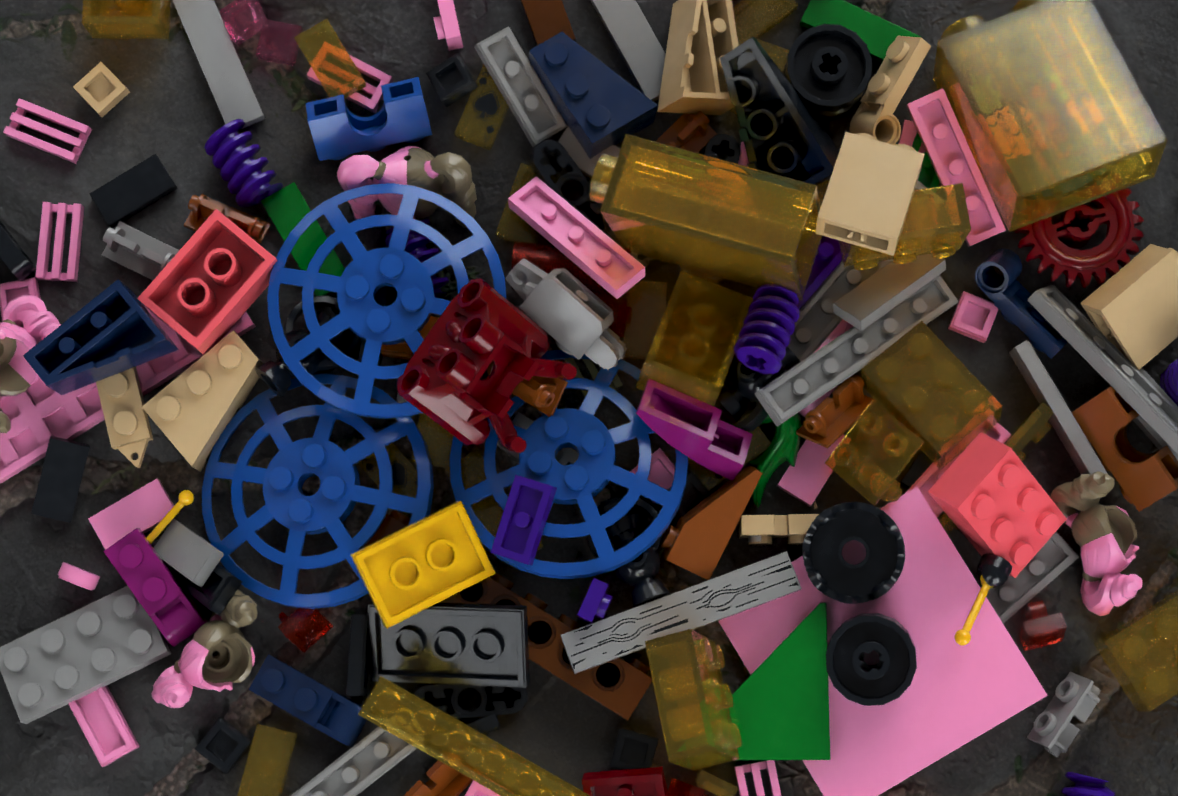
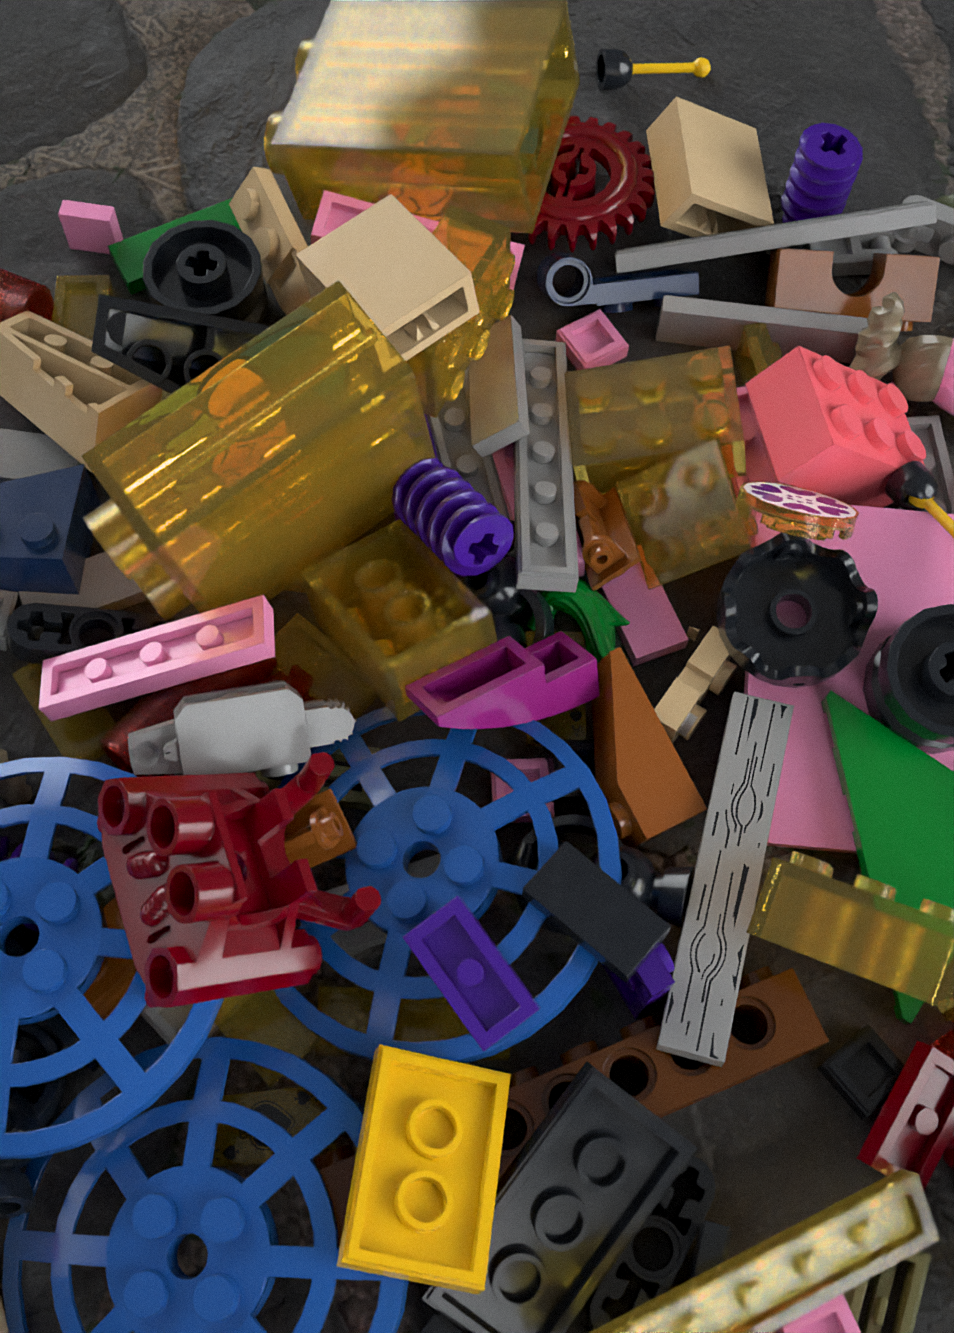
camera: 60 degrees left, 15 degrees down
(597, 558) = (596, 911): none -> black tile
(909, 514) = (797, 510): none -> tile

